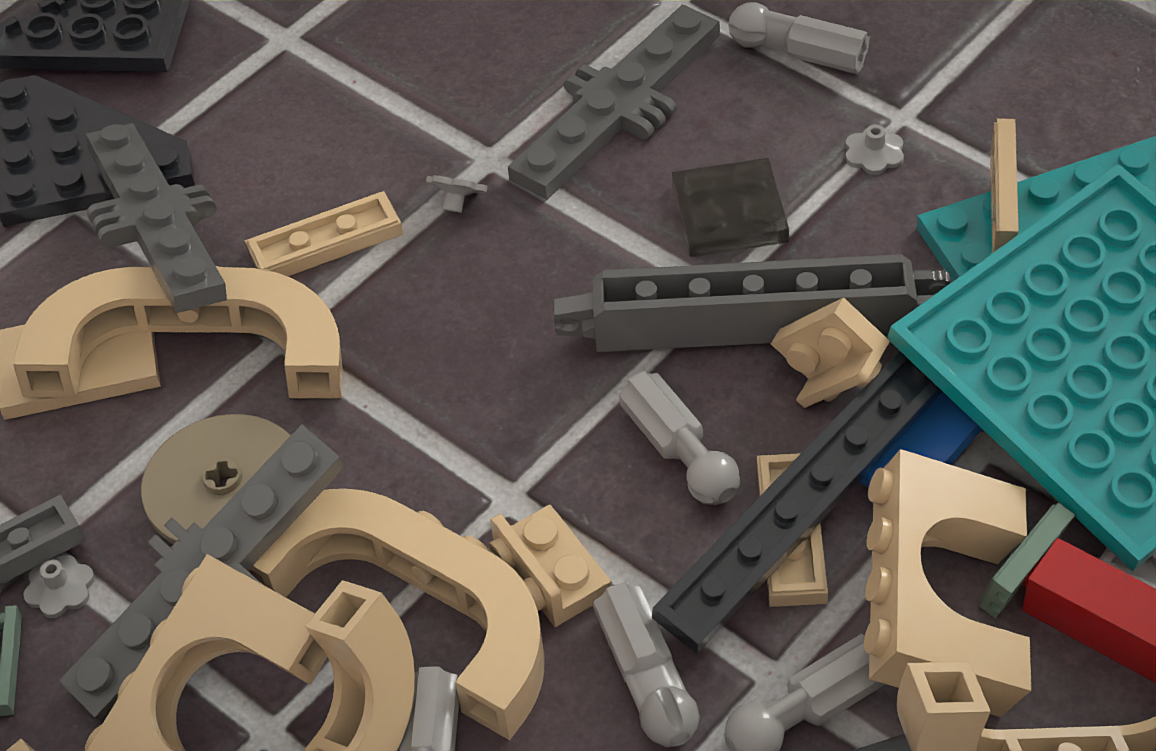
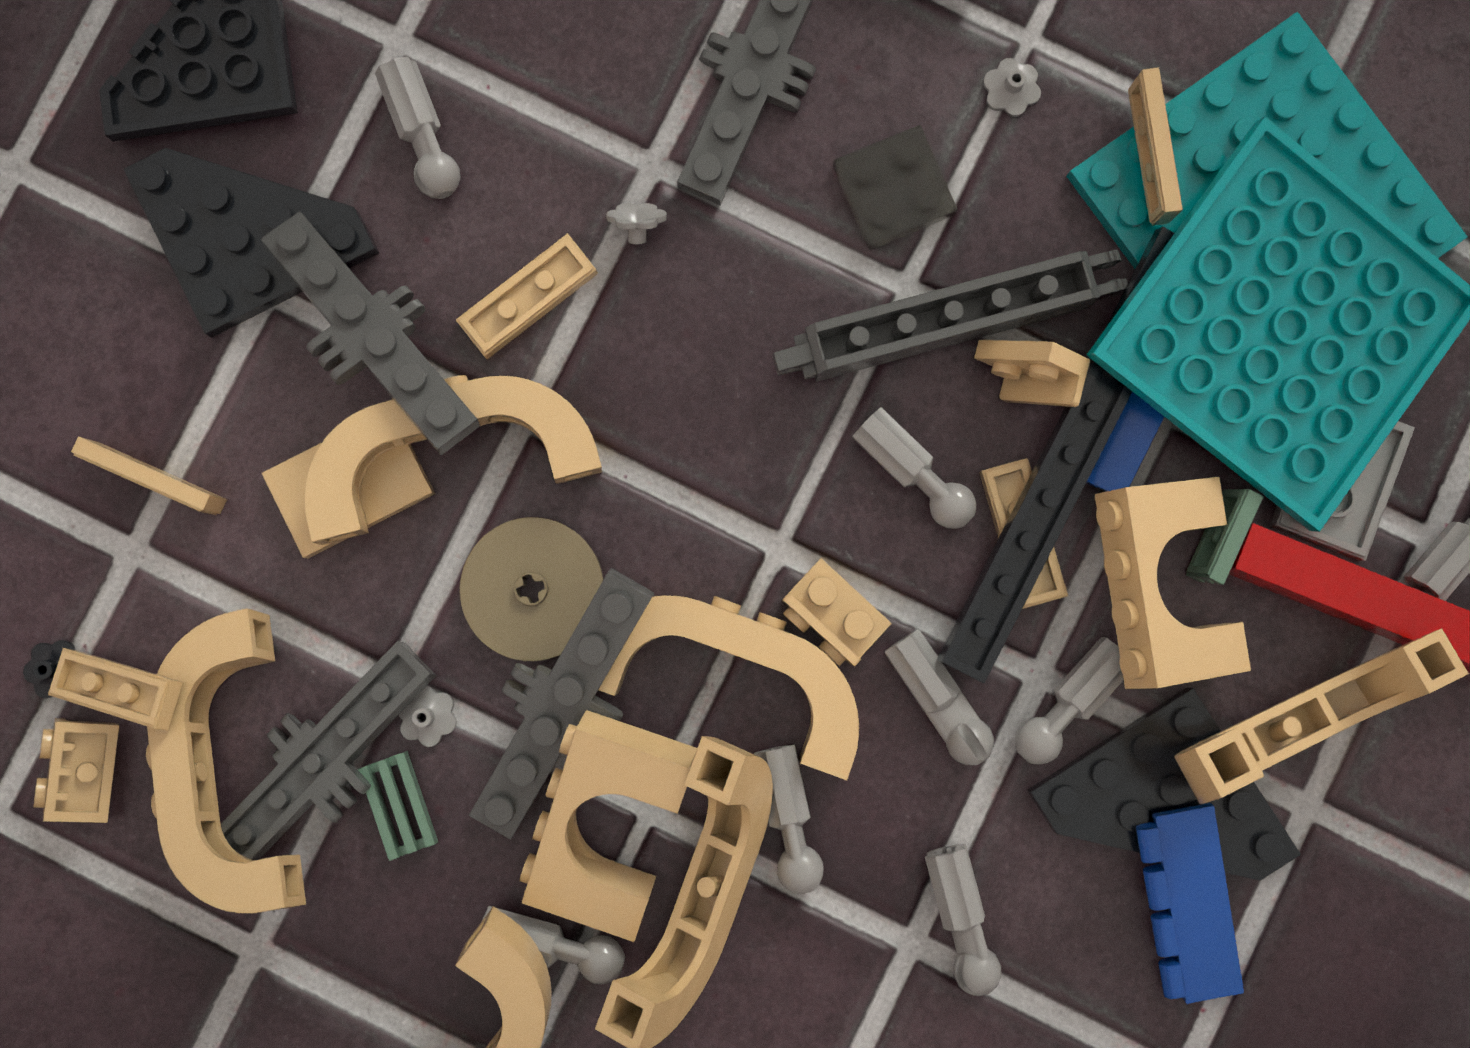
camera: 15 degrees left, 35 degrees up
(275, 91) = (417, 123): none -> light grey piece

